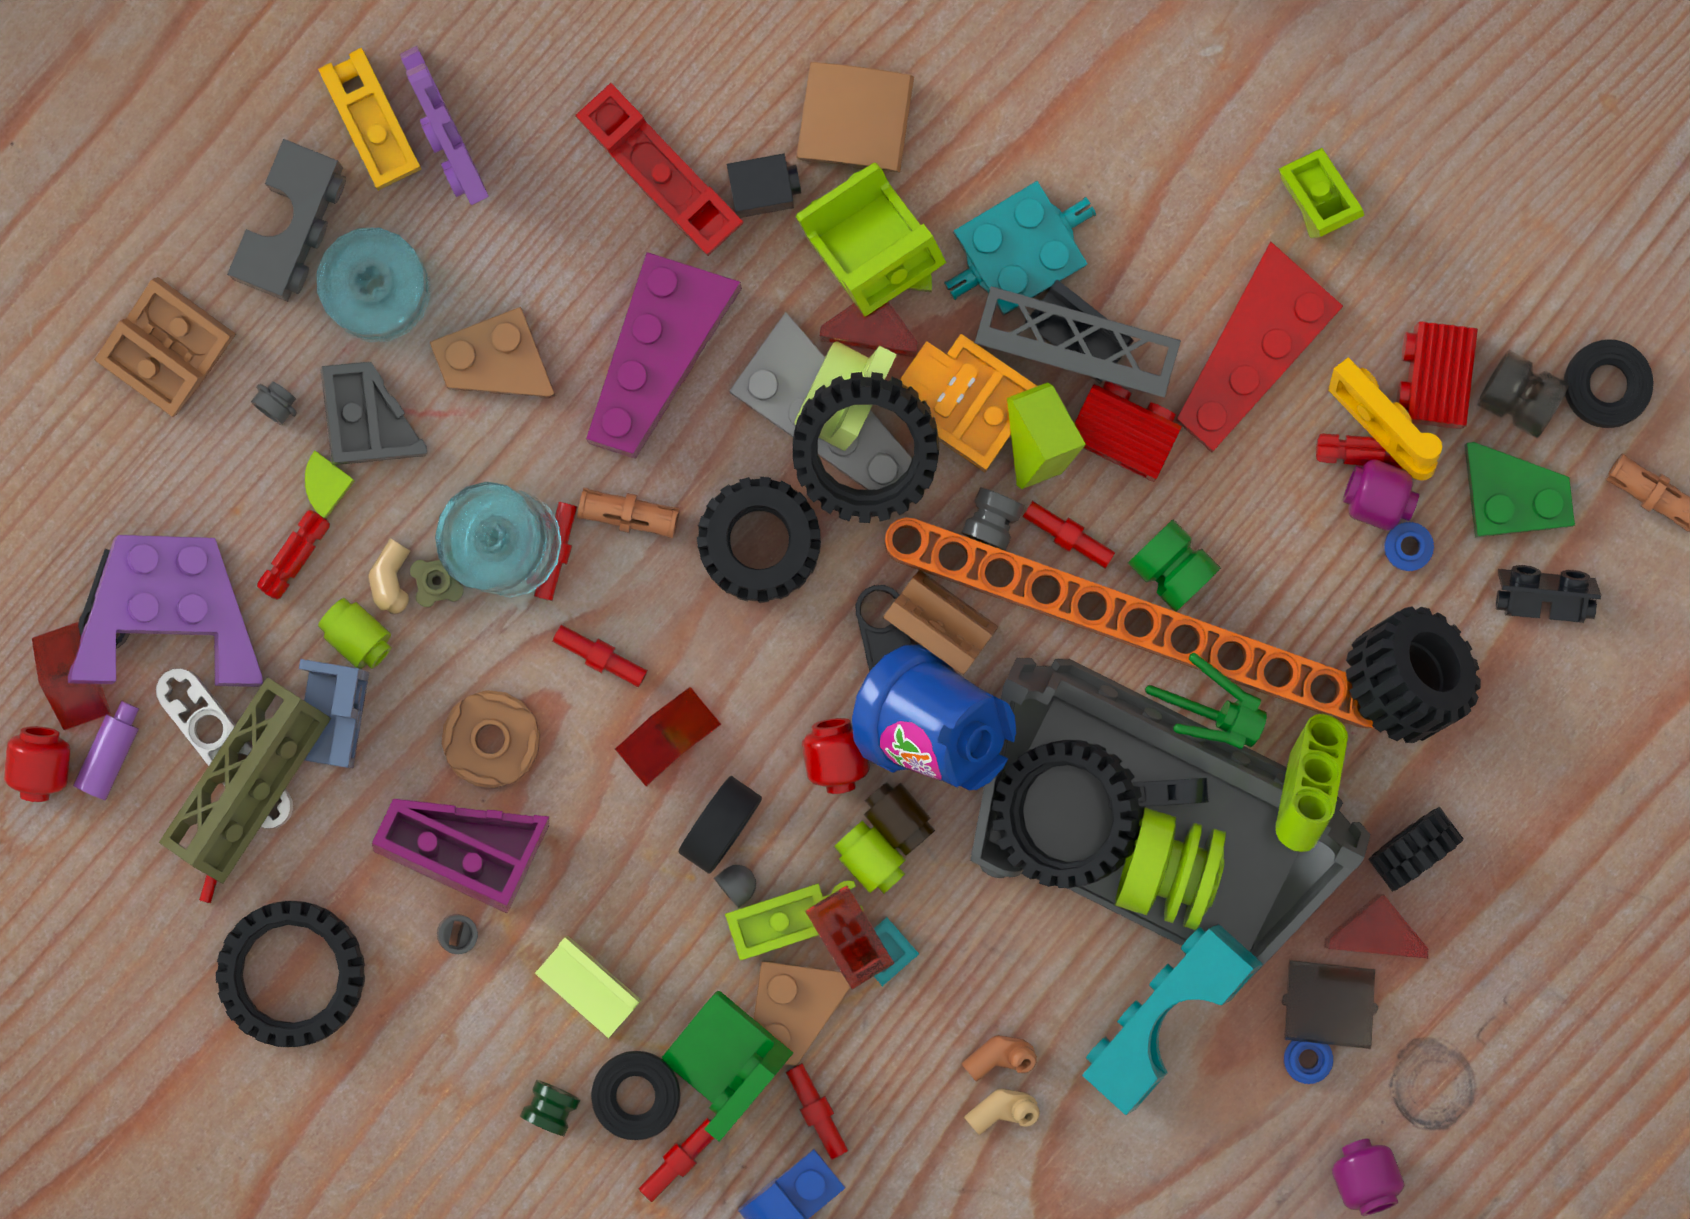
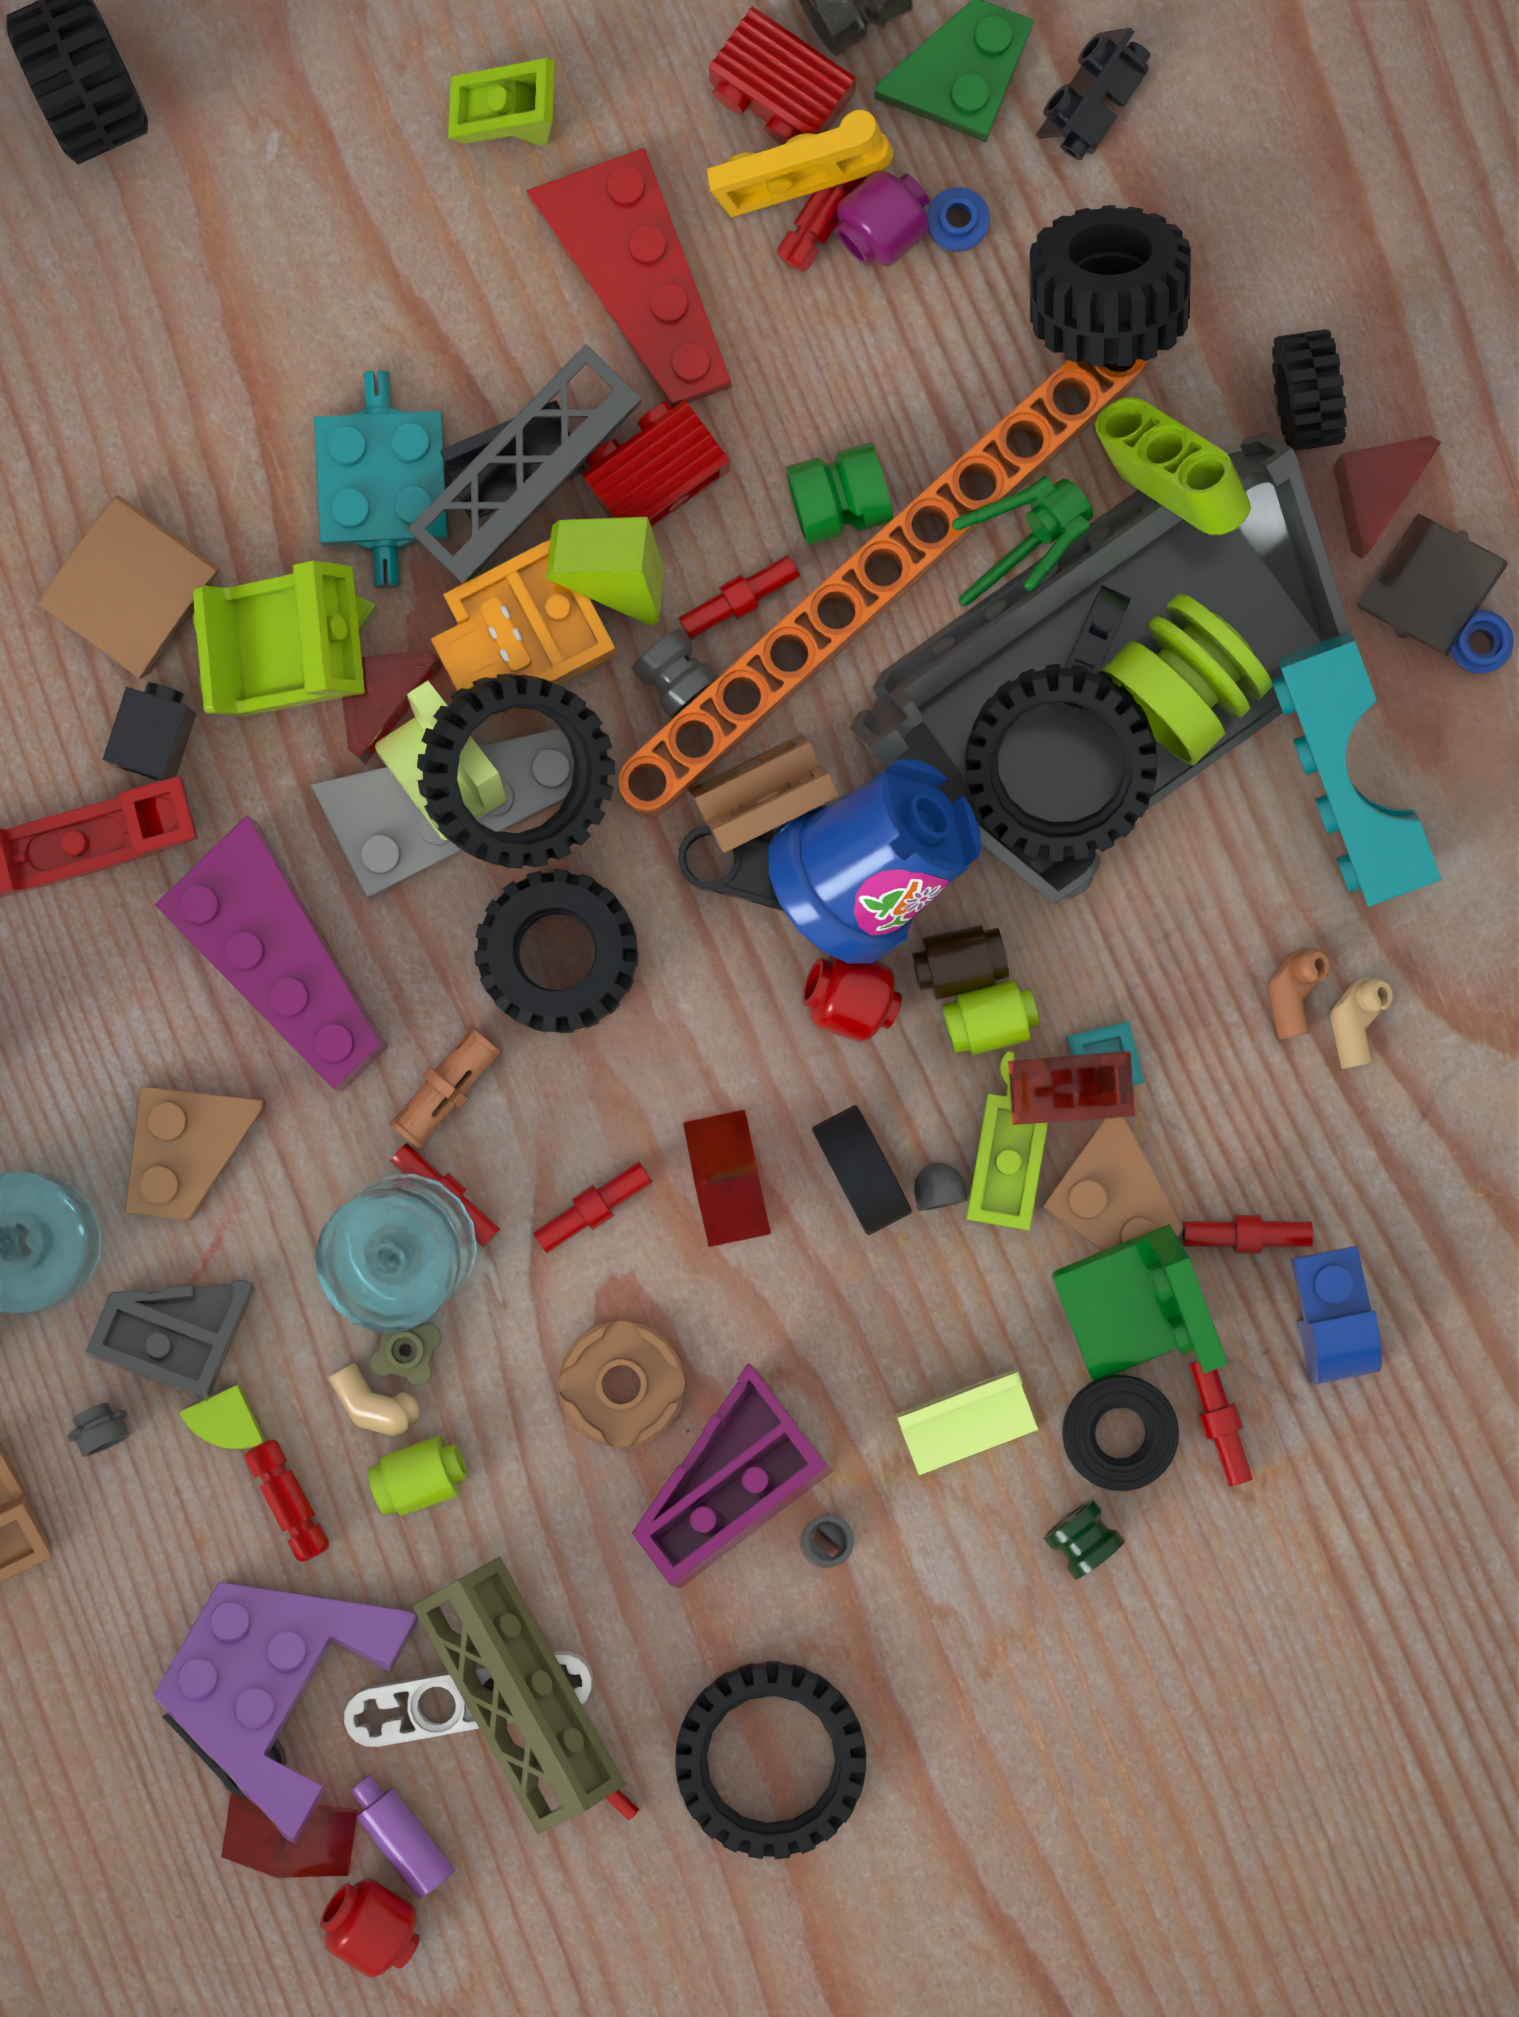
camera: 60 degrees left, 0 degrees up
(341, 696) = (480, 1531): sand blue panel -> none

